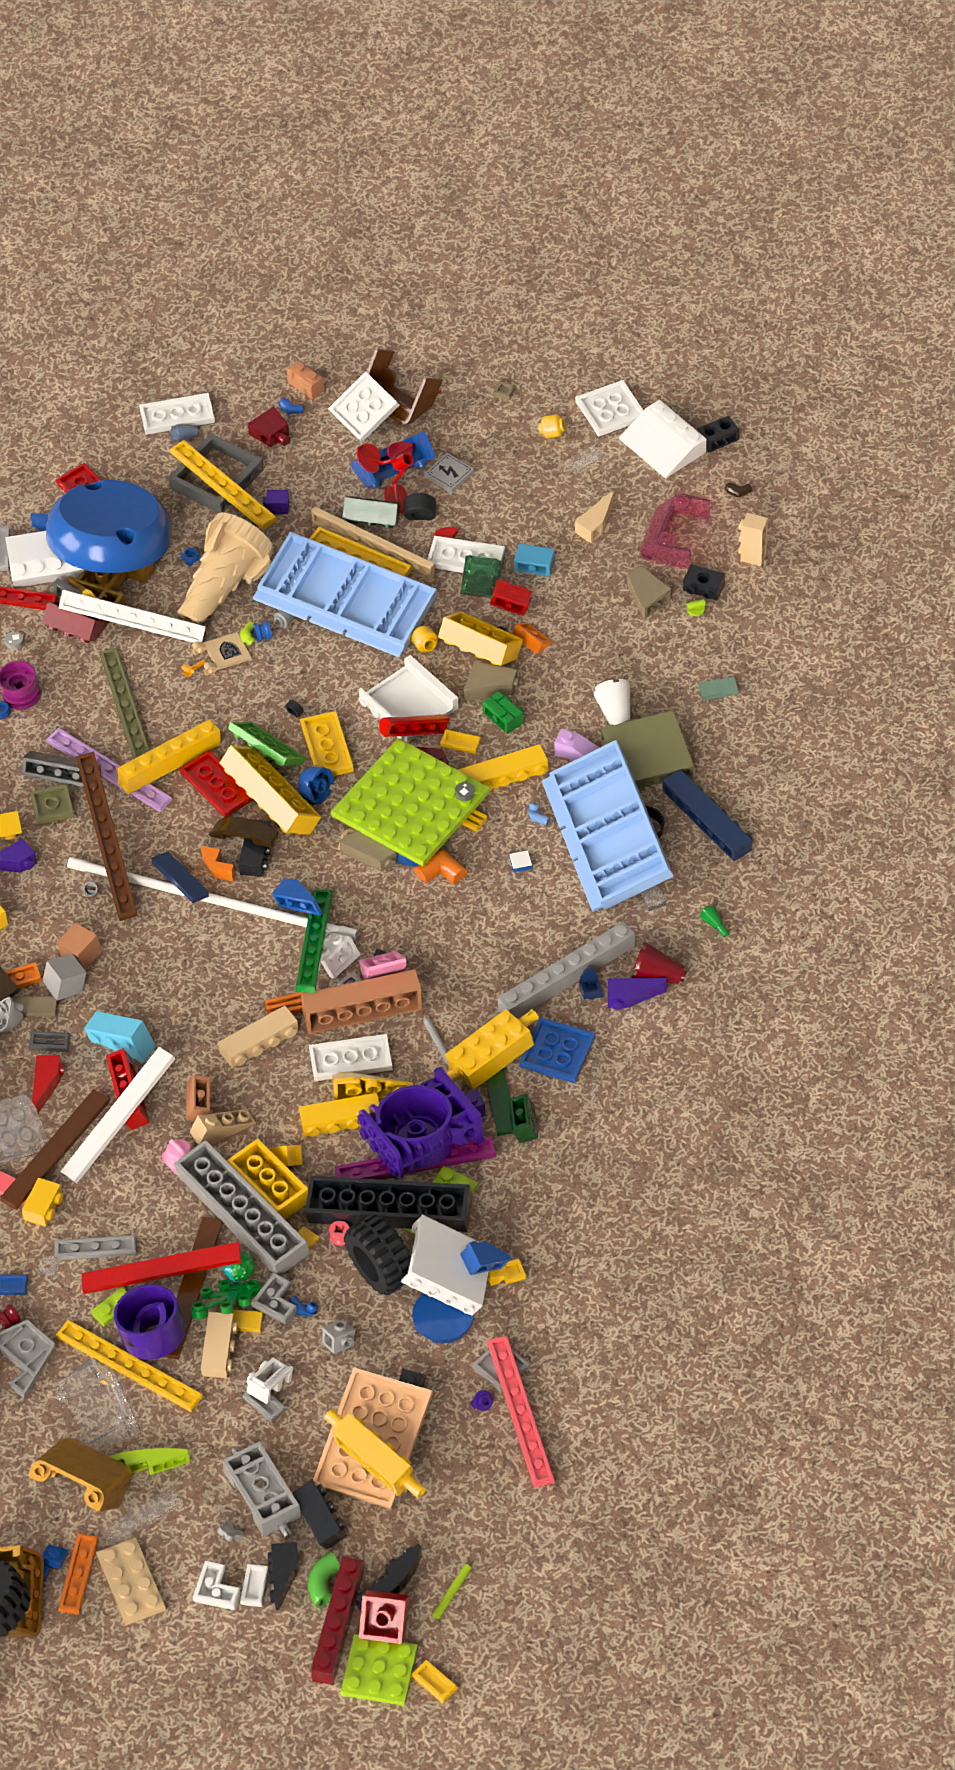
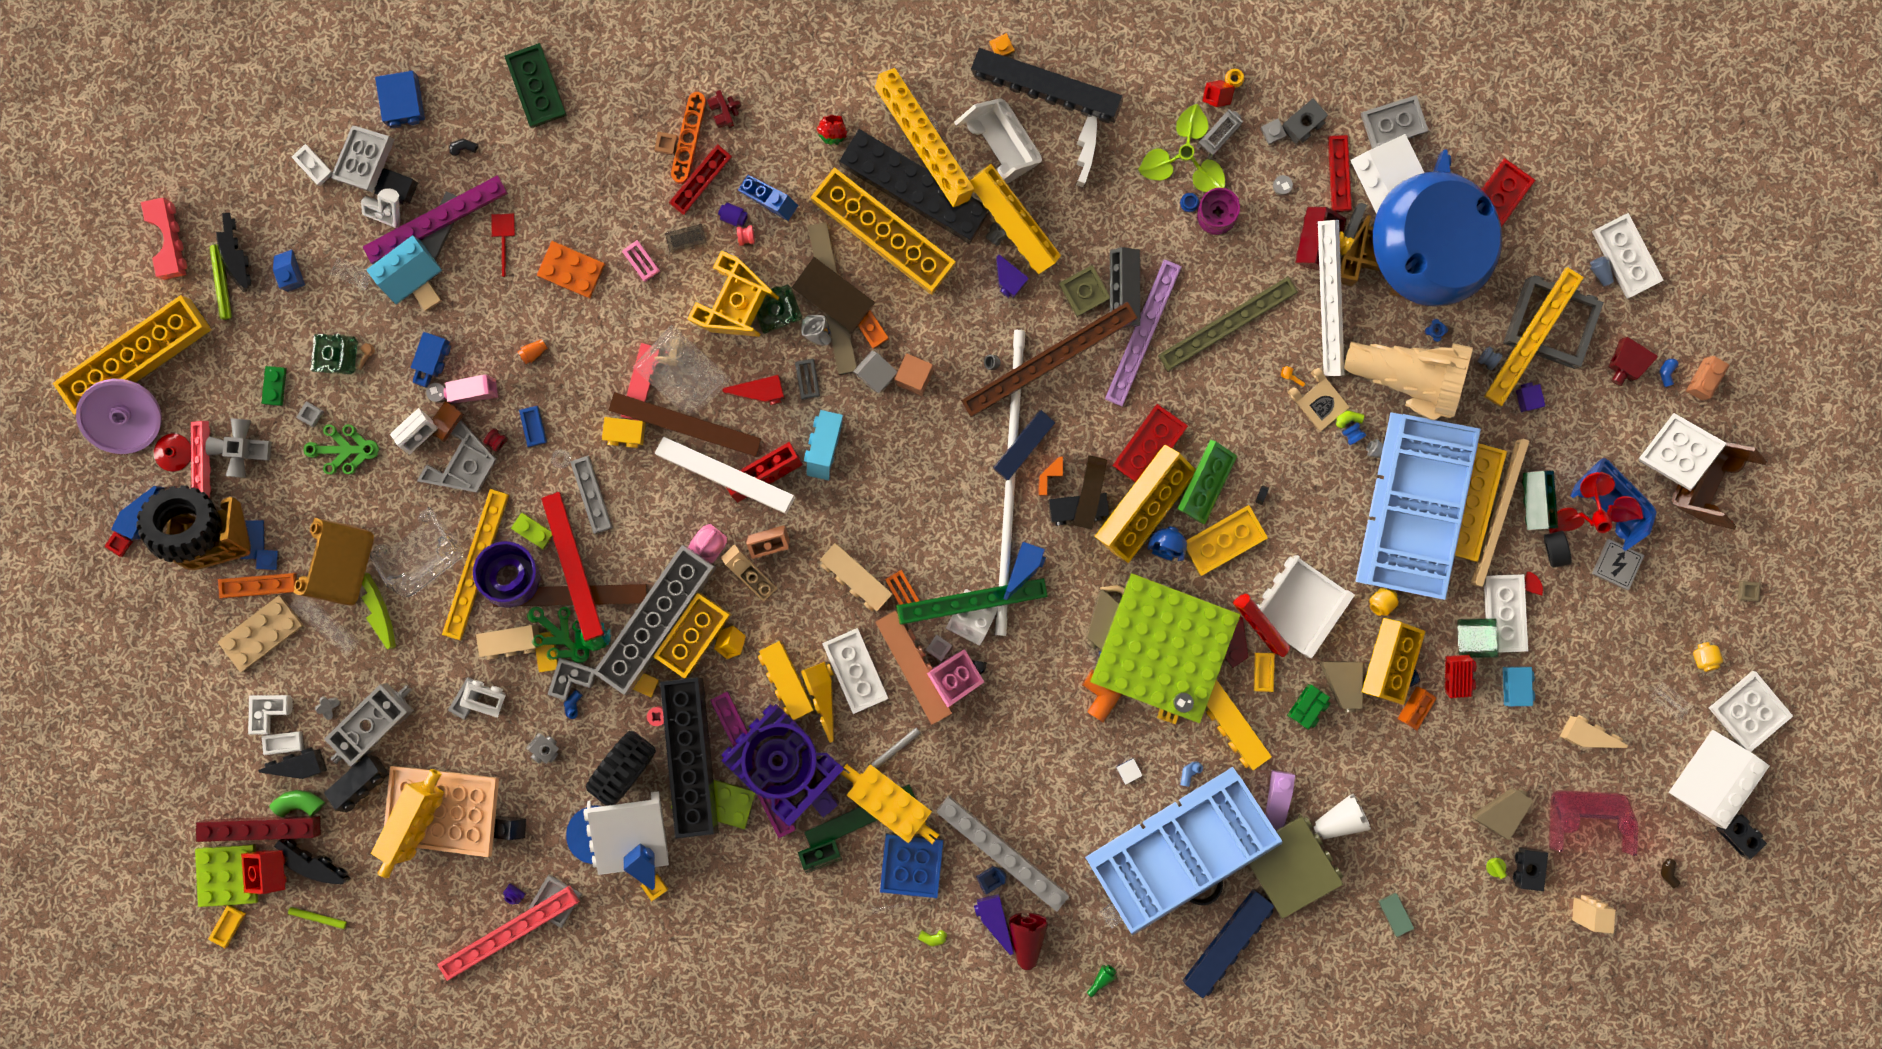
camera: 70 degrees right, 35 degrees up
(168, 756) = (1166, 389): yellow brick -> none
(637, 1048) = (934, 940): none -> lime arm

